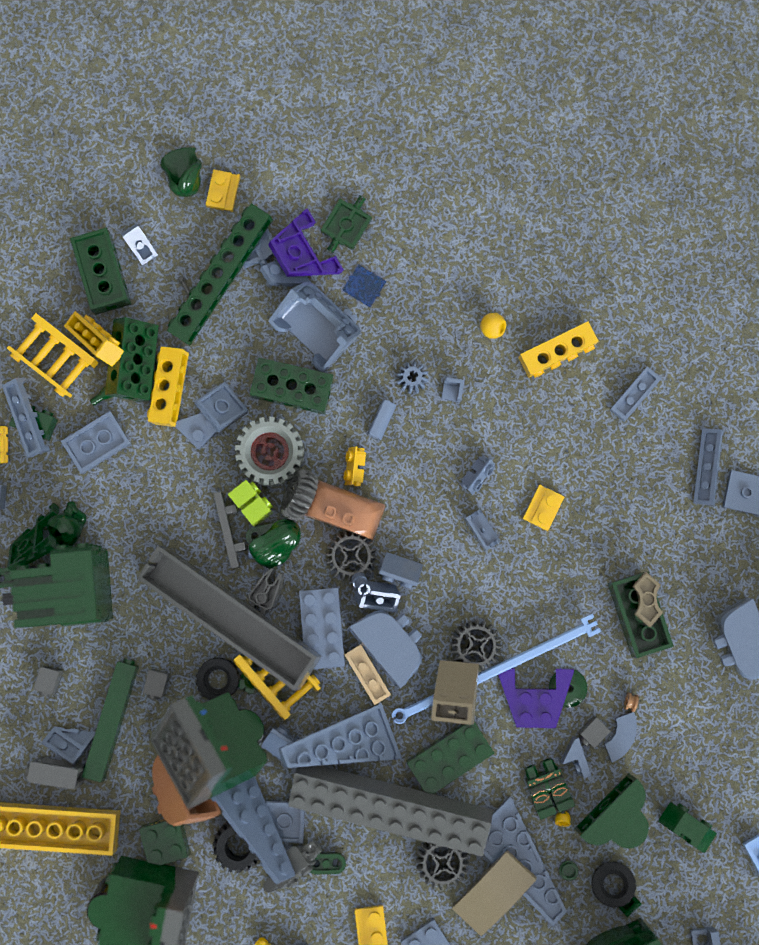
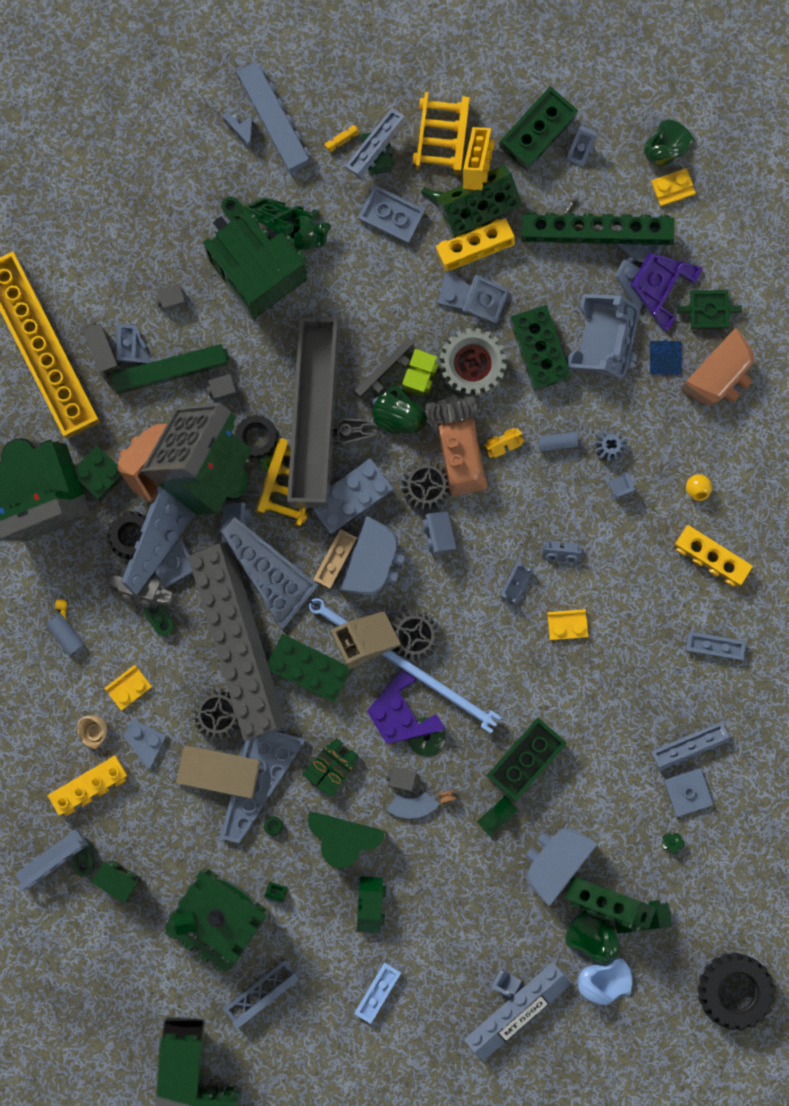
camera: 60 degrees right, 0 degrees up
(375, 594) = (406, 523): sand blue hinge -> none
(406, 245) = (722, 371): none -> nougat hips
(563, 819) = (313, 796): yellow hinge -> none
(575, 752) = (375, 772): sand blue slope -> none
(598, 884) = (284, 854): black tyre -> none
(646, 589) = (534, 760): dark tan tile -> none
(672, 667) = (497, 815): none -> dark green slope

